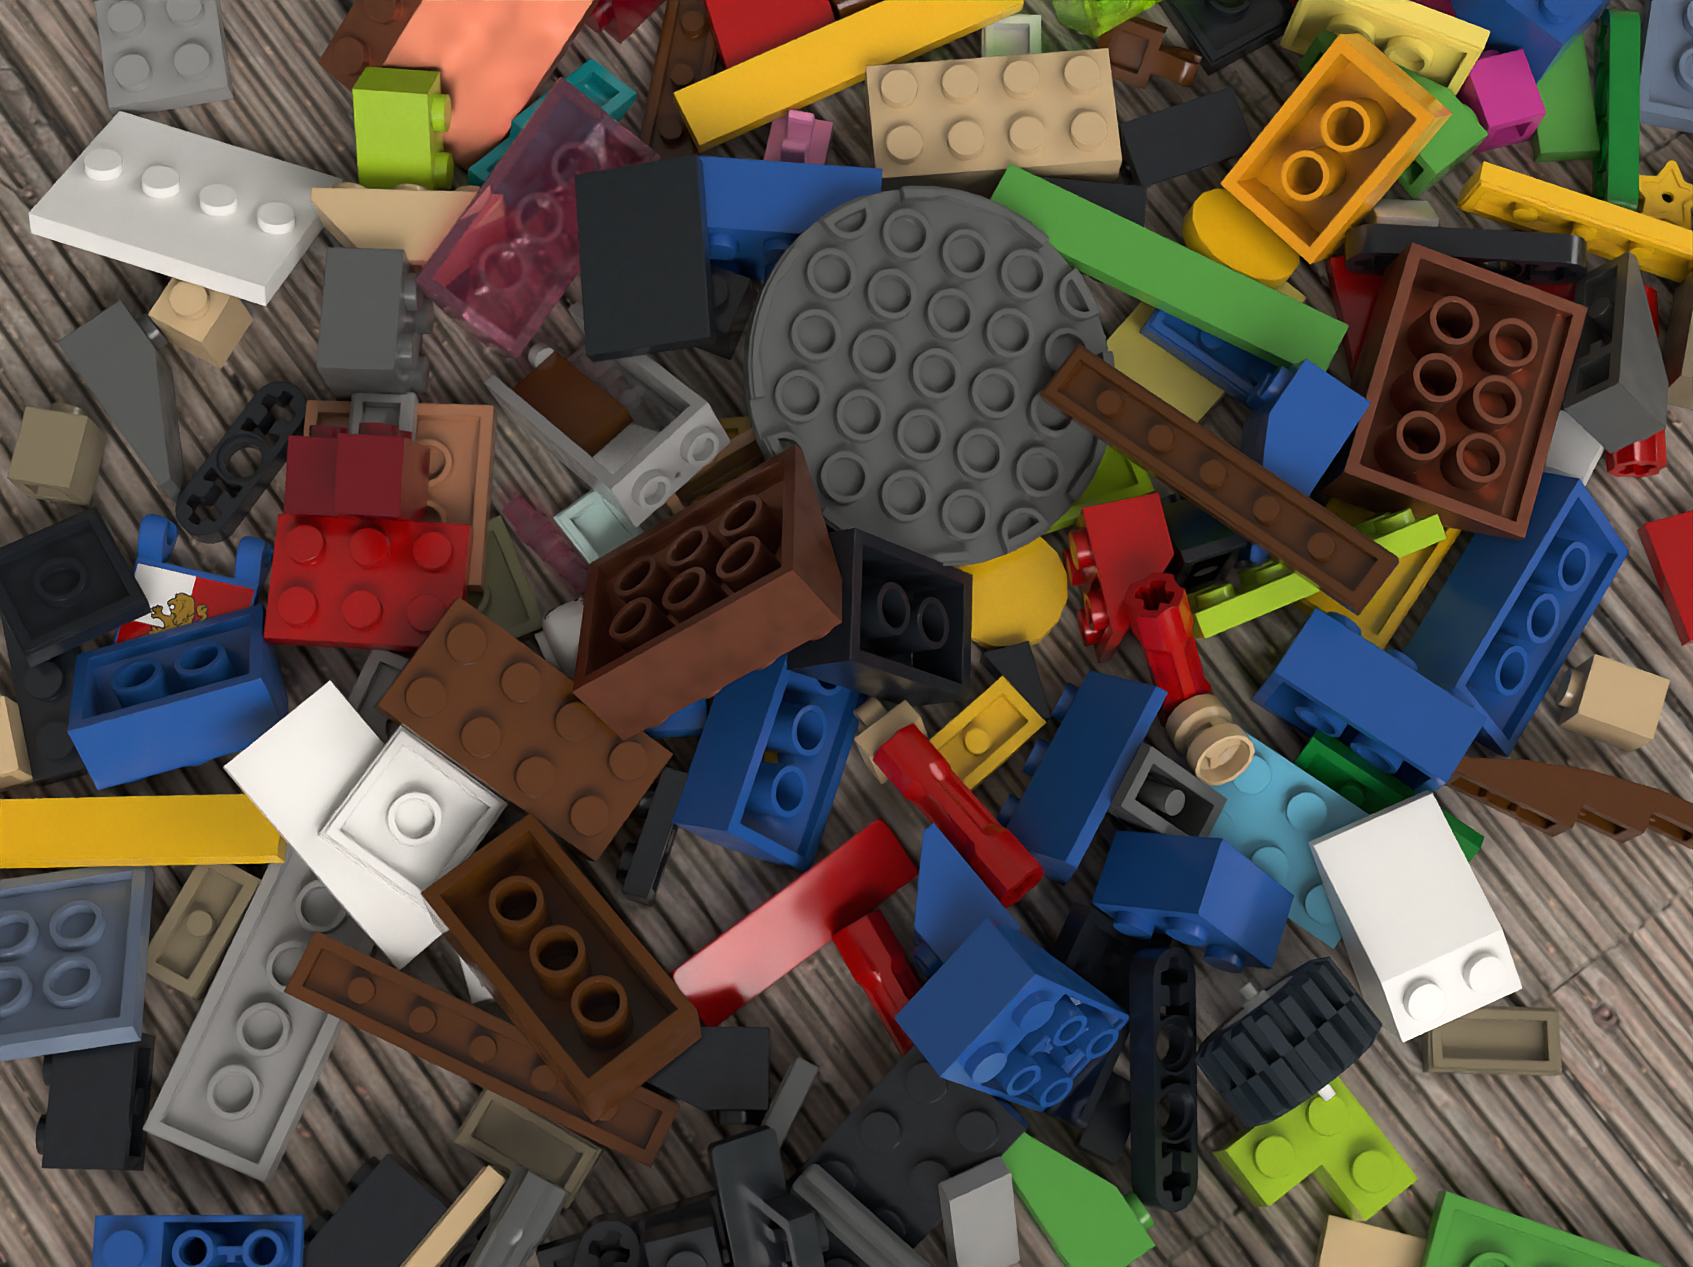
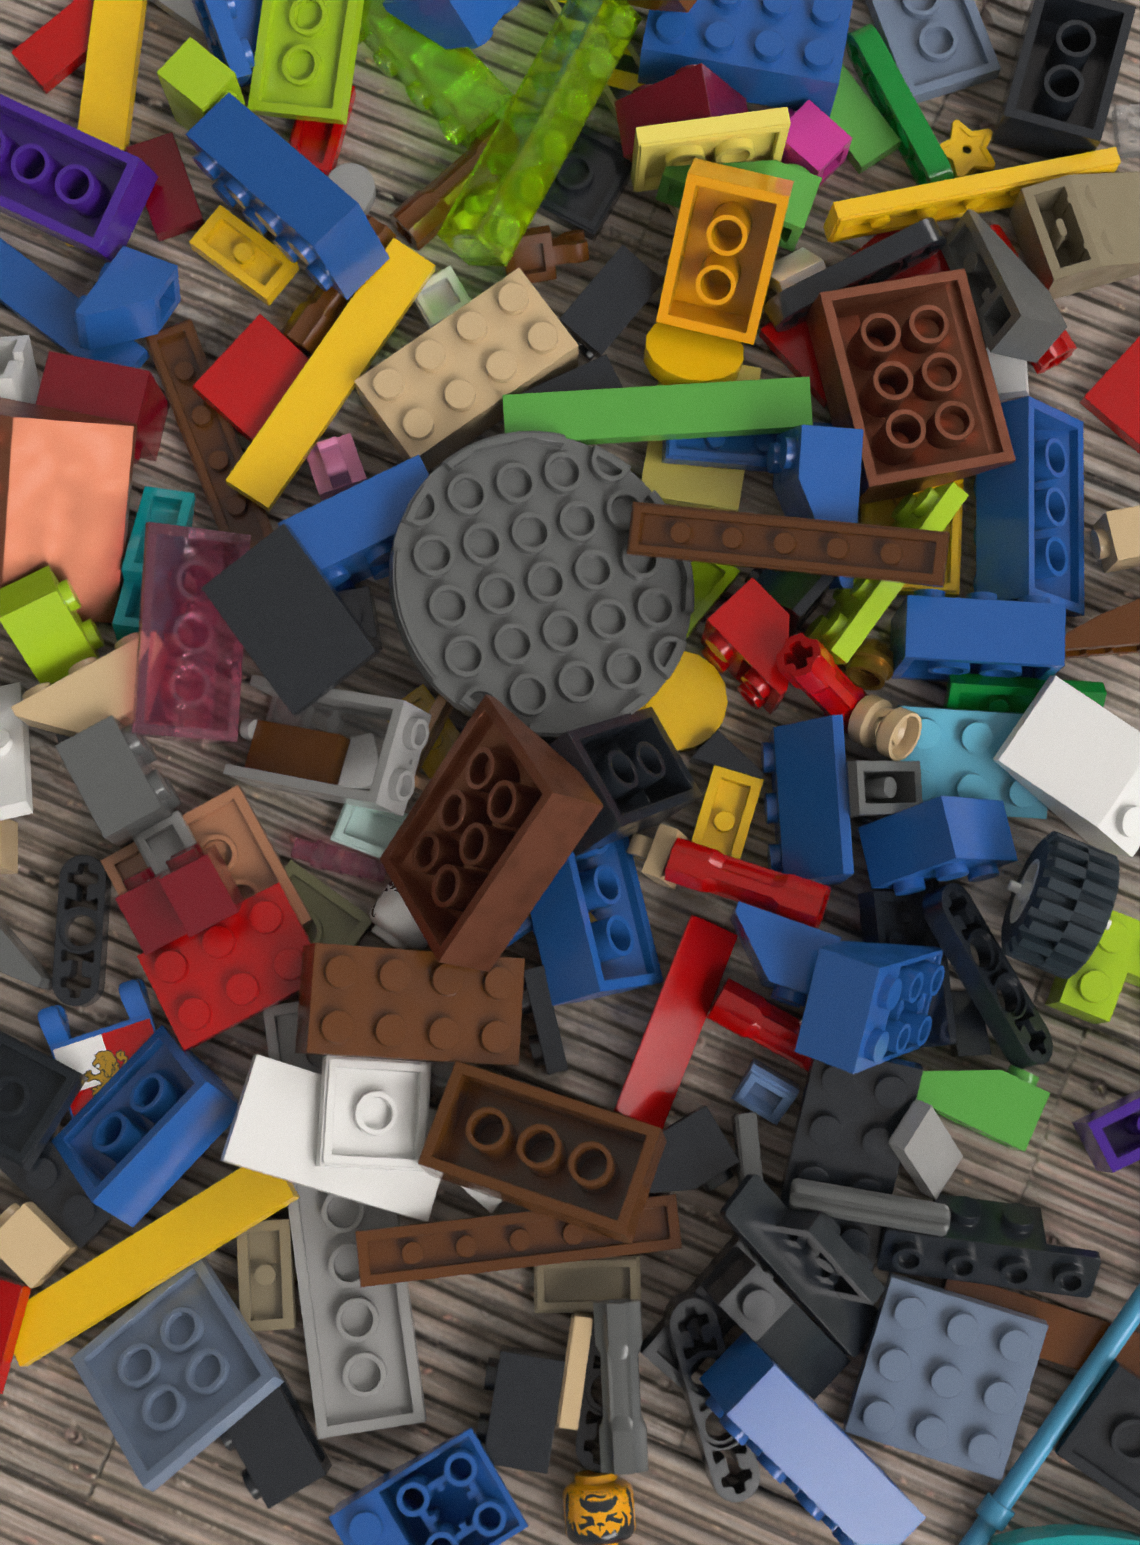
camera: 30 degrees left, 5 degrees up
(846, 1057) = (765, 1091): none -> medium blue slope
(1236, 669) = (870, 665): none -> pearl gold plate

